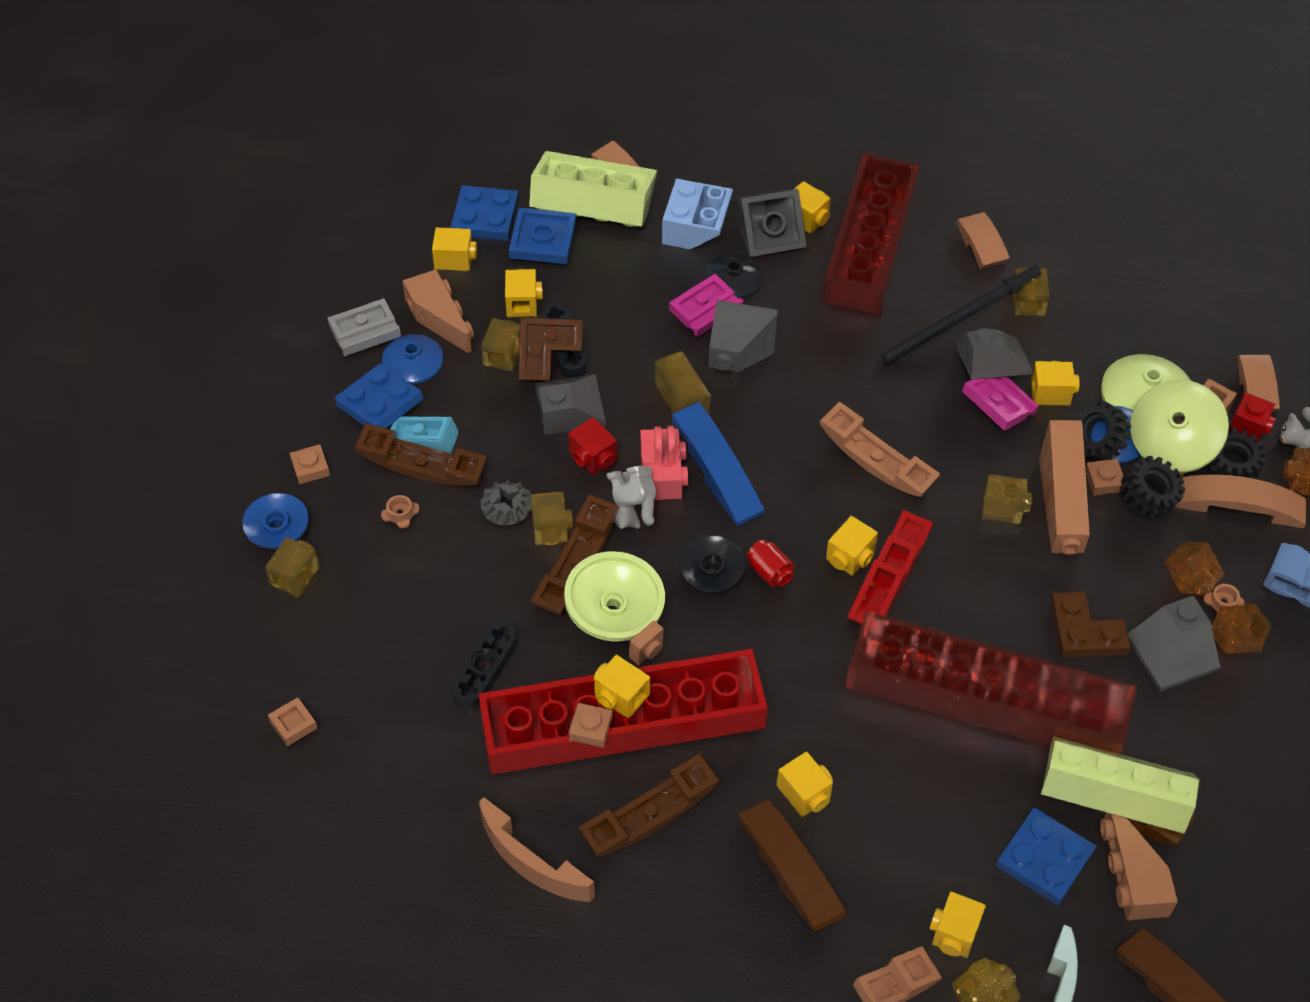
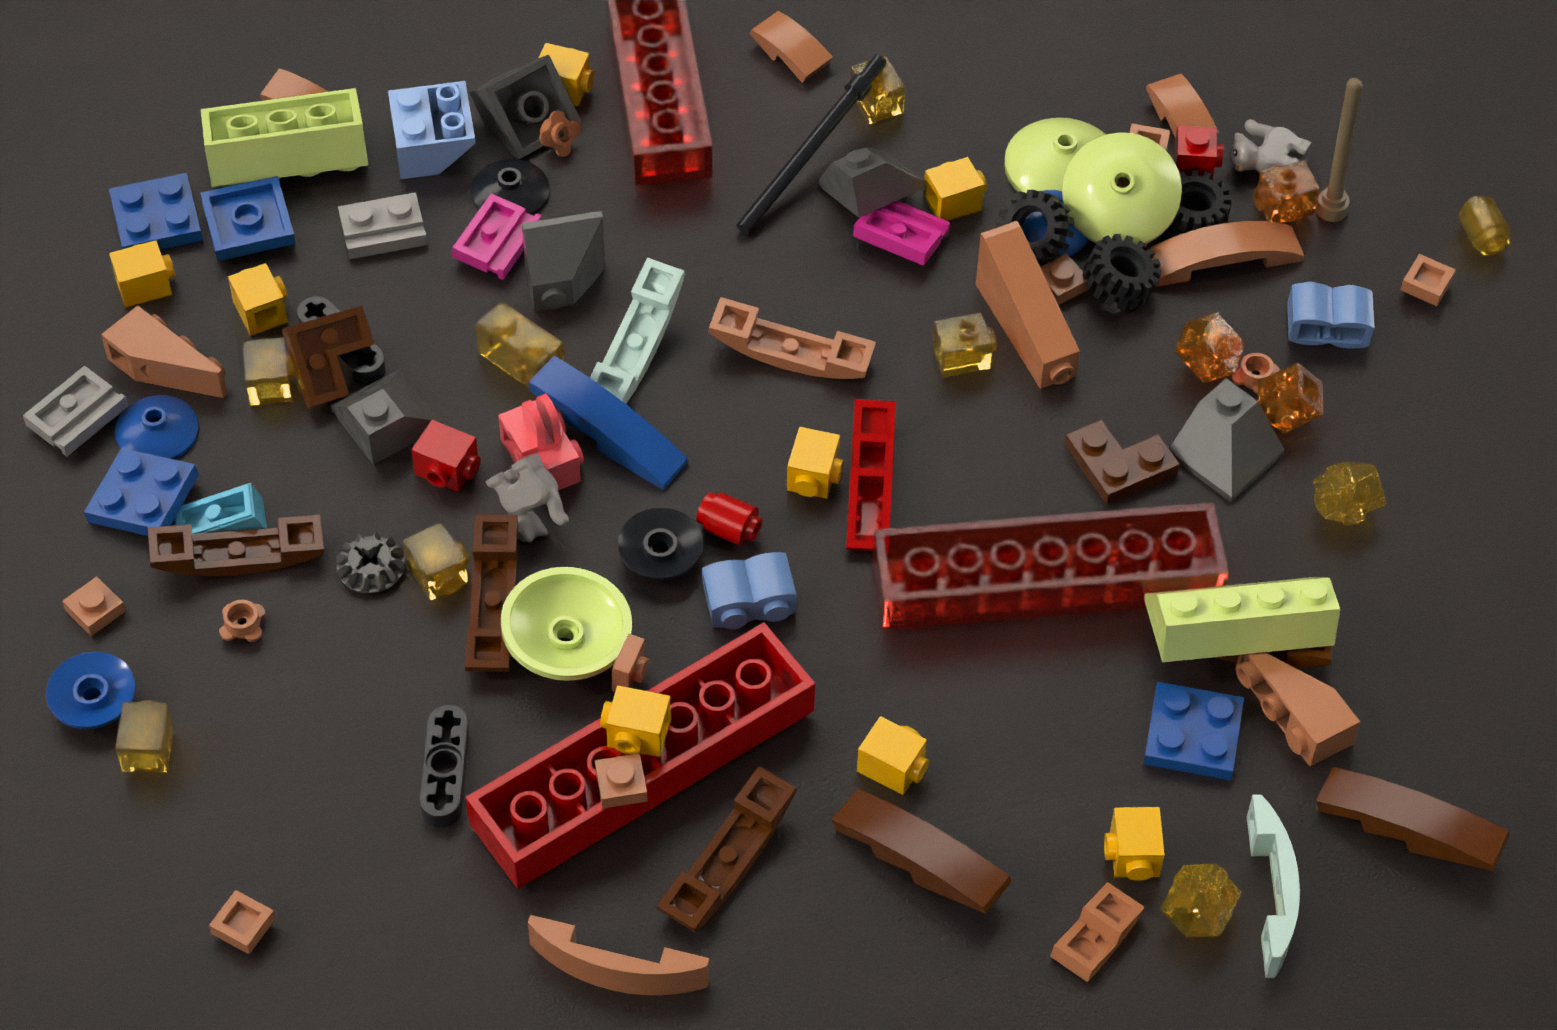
camera: 25 degrees left, 0 degrees up
(632, 271) = (382, 225): none -> light grey plate
(759, 621) = (749, 590): none -> medium blue brick
(772, 408) = (640, 330): none -> light aqua slope
(779, 242) = (550, 133): none -> nougat plate
(1253, 718) = (1348, 492): none -> clear yellow brick

